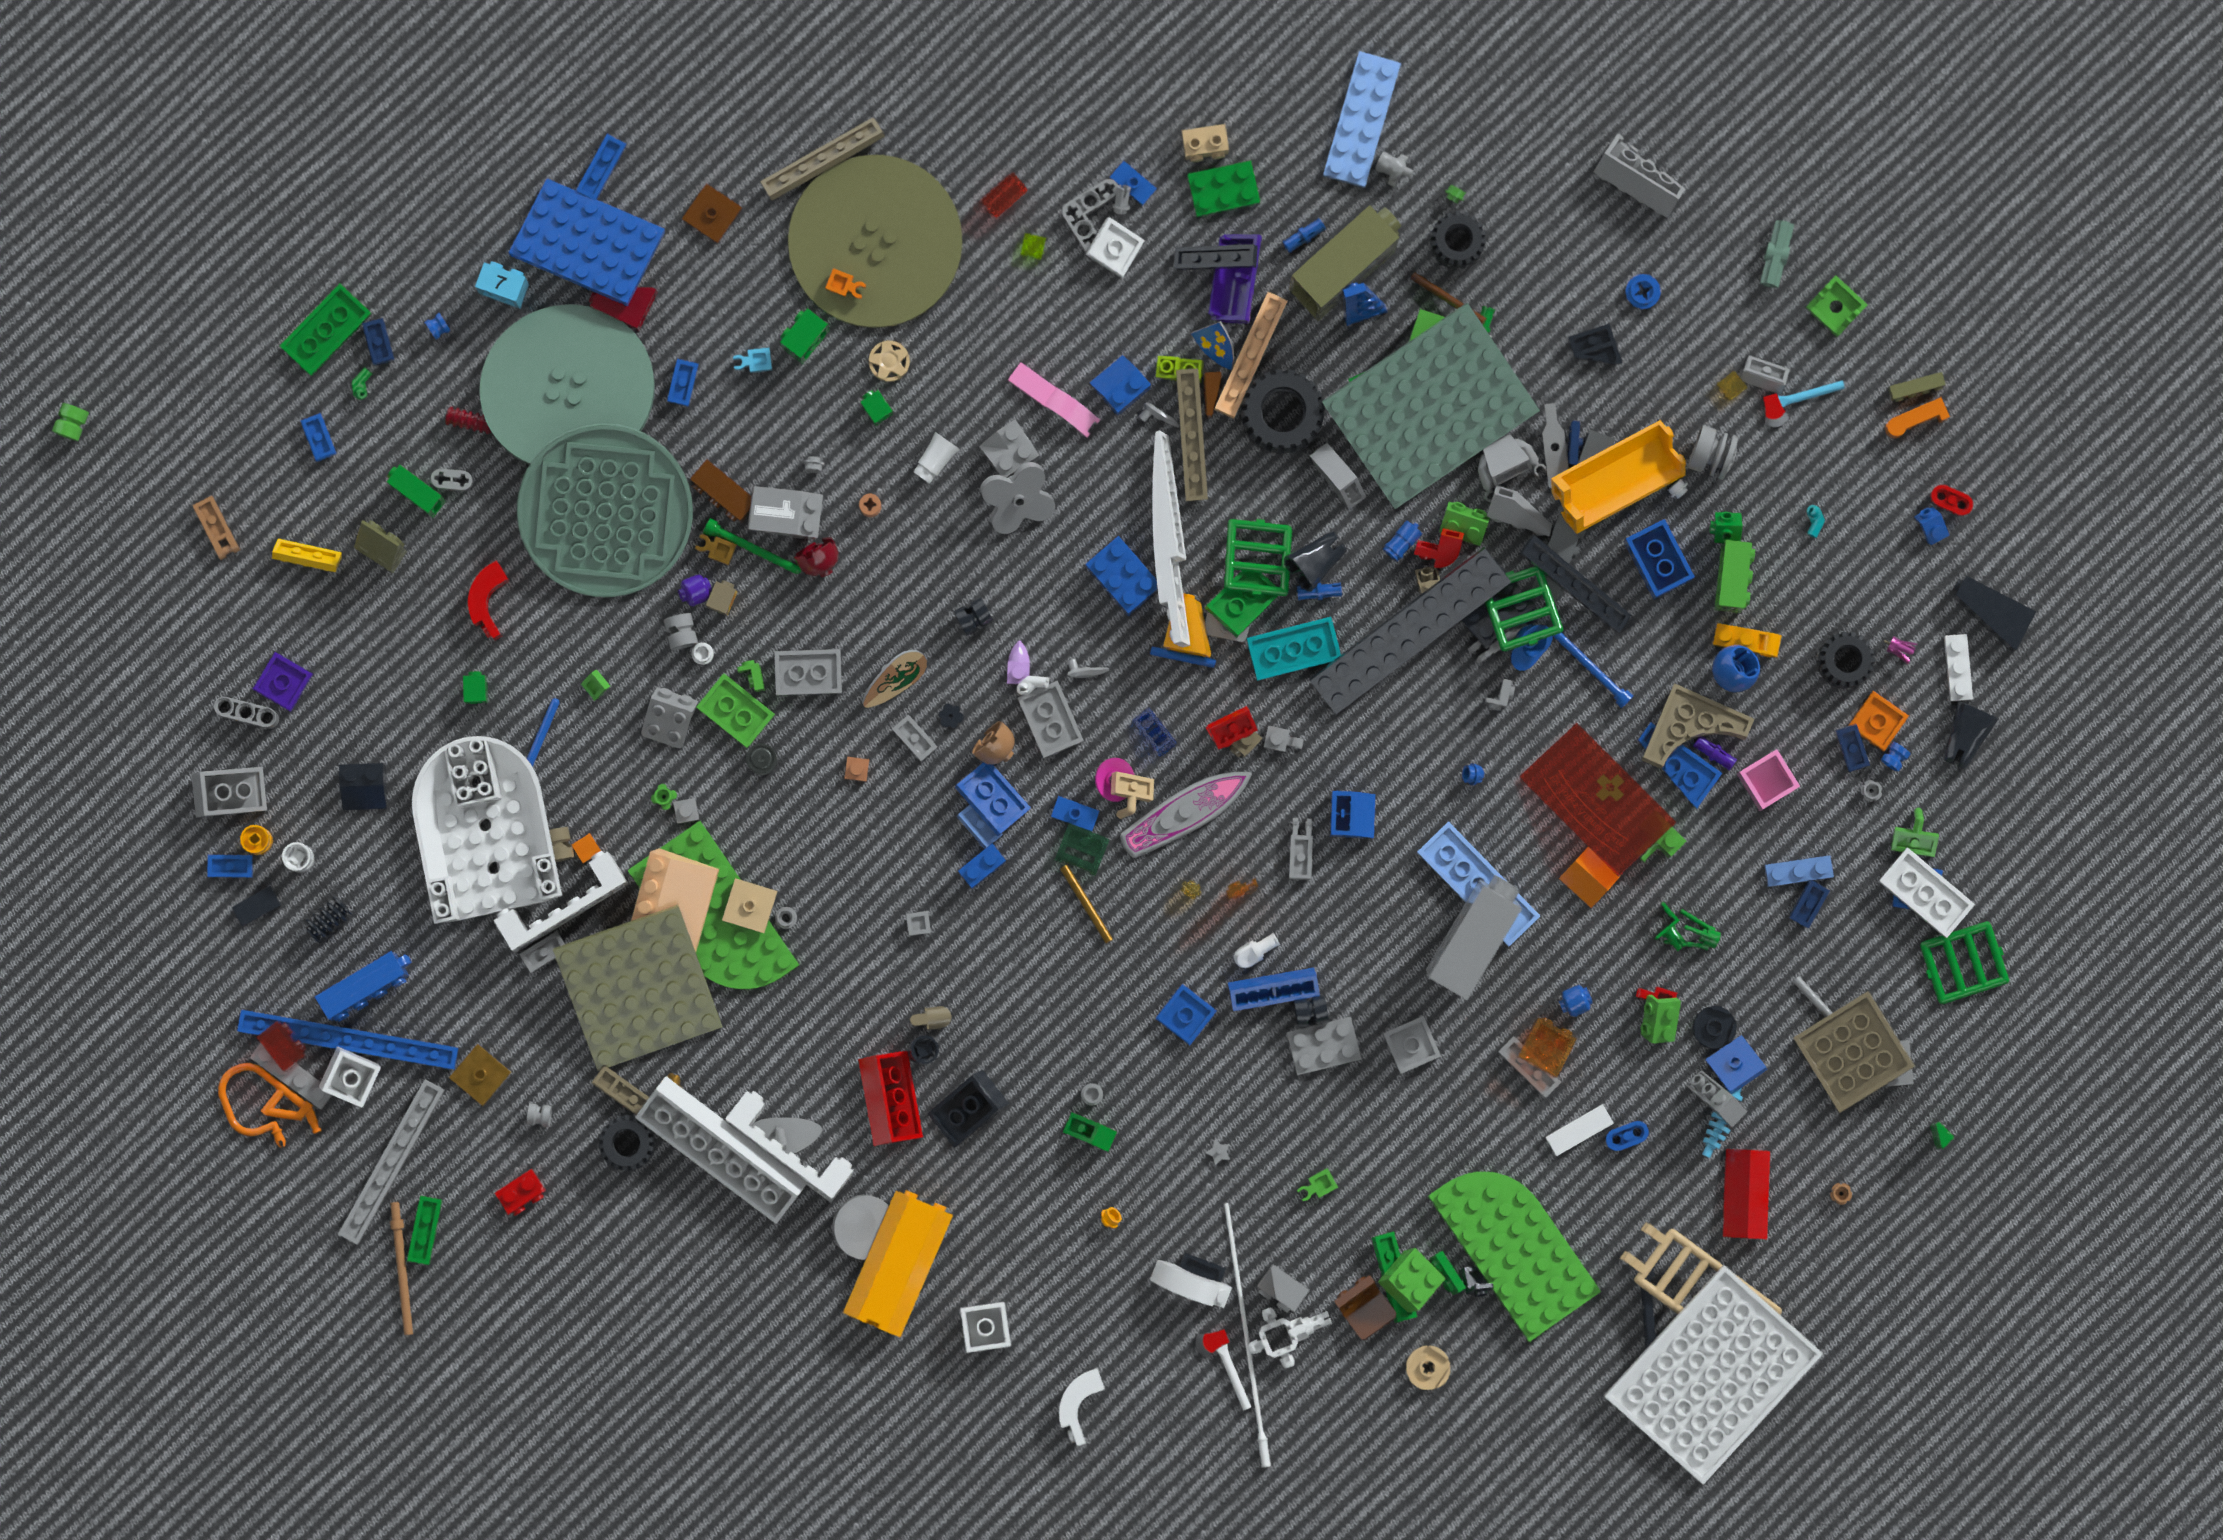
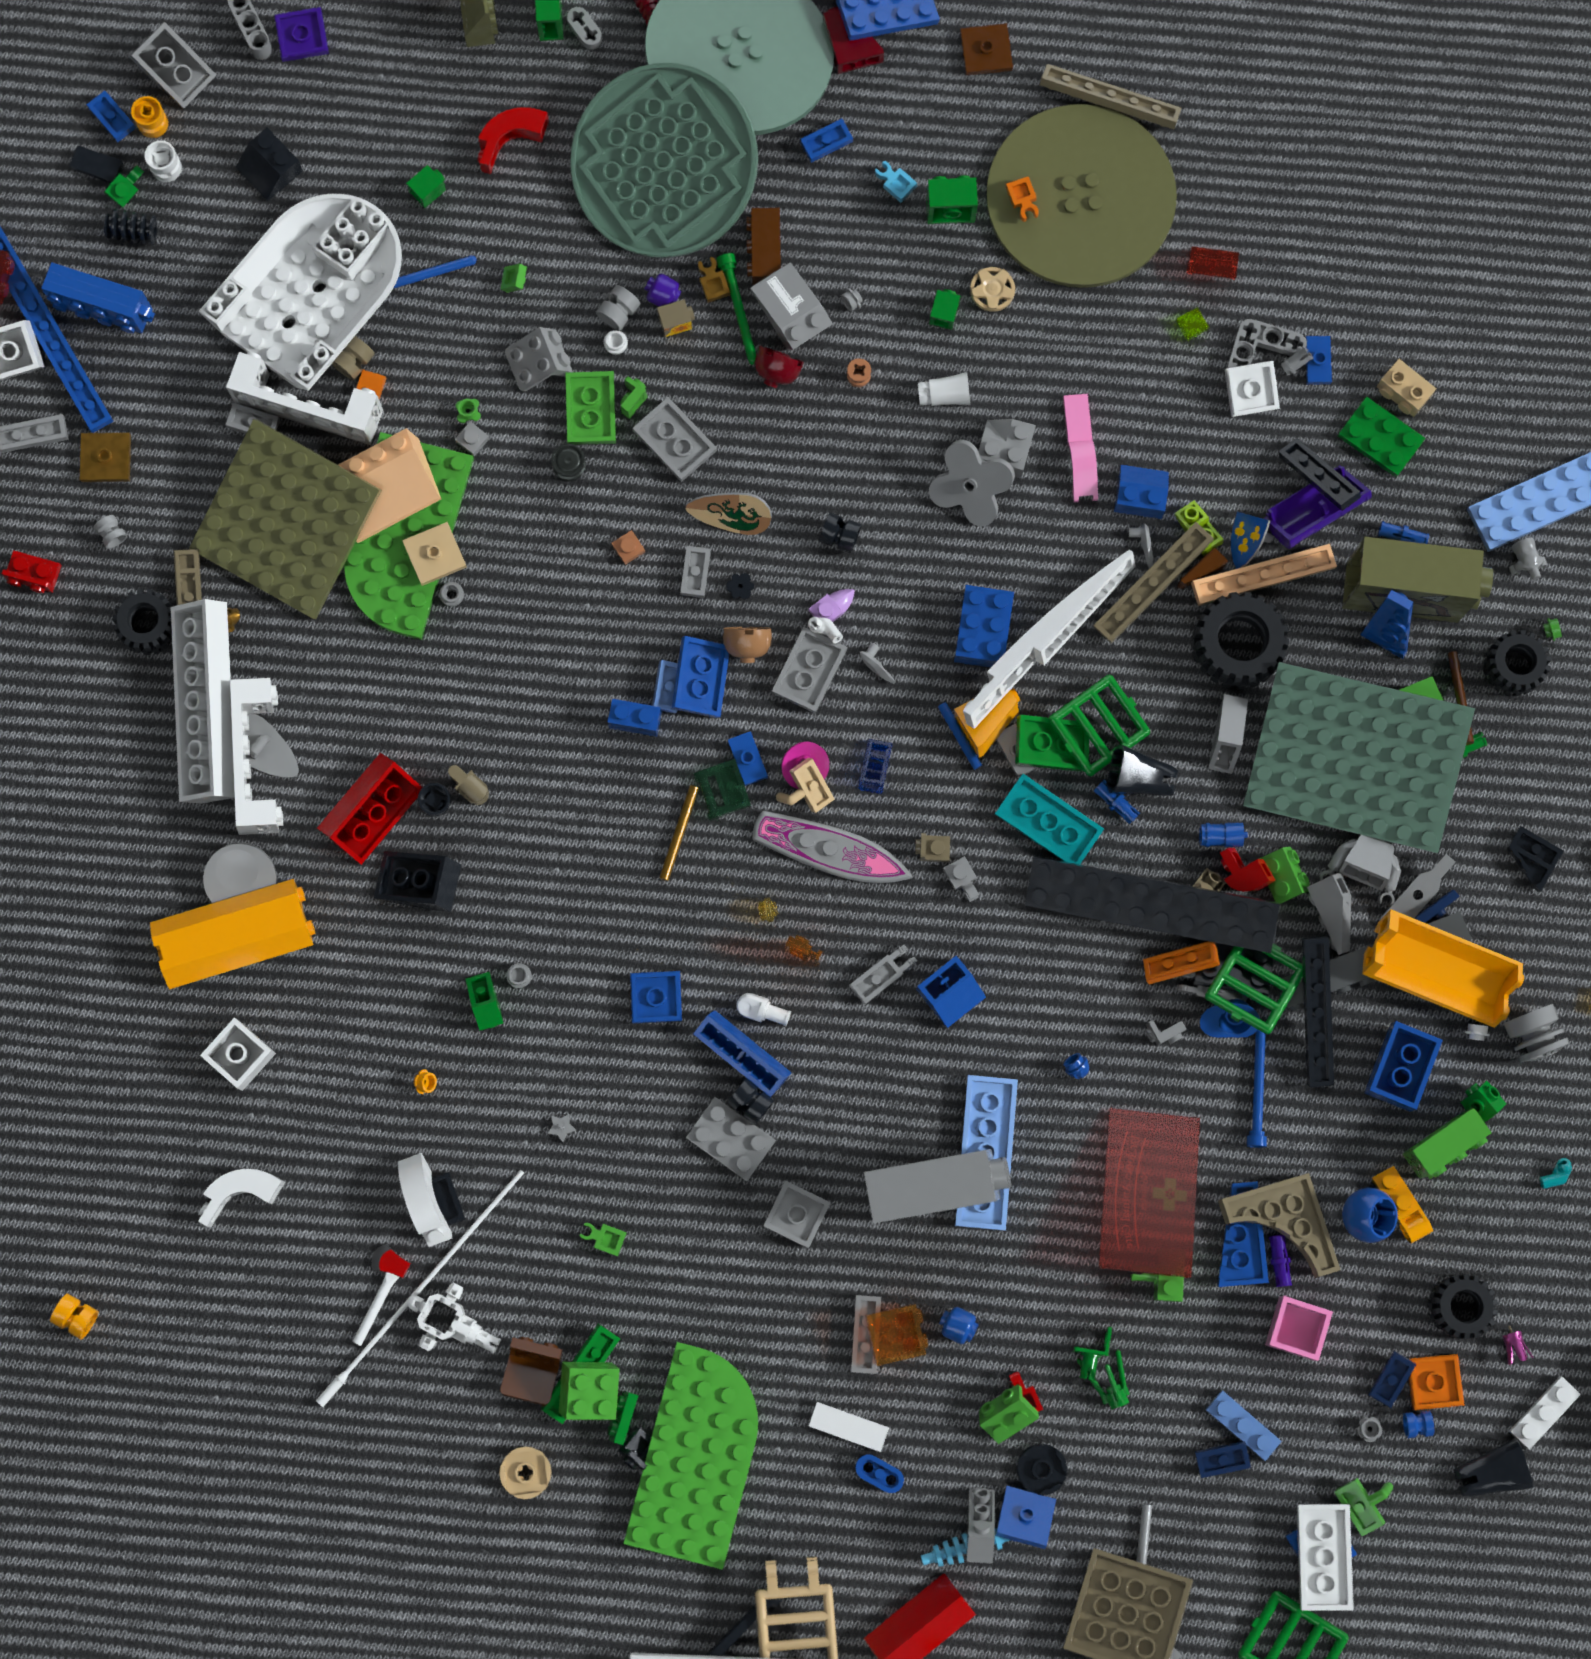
camera: 50 degrees right, 5 degrees down
(291, 903) = (122, 188): none -> green plate
(918, 923) = (540, 706): light grey plate -> none
(1232, 728) = (935, 823): red bracket -> none
(1282, 1288) = (487, 1283): light grey slope -> none
(1464, 644) = (1181, 962): none -> orange tile
(1589, 877) = (1075, 1244): orange slope -> none

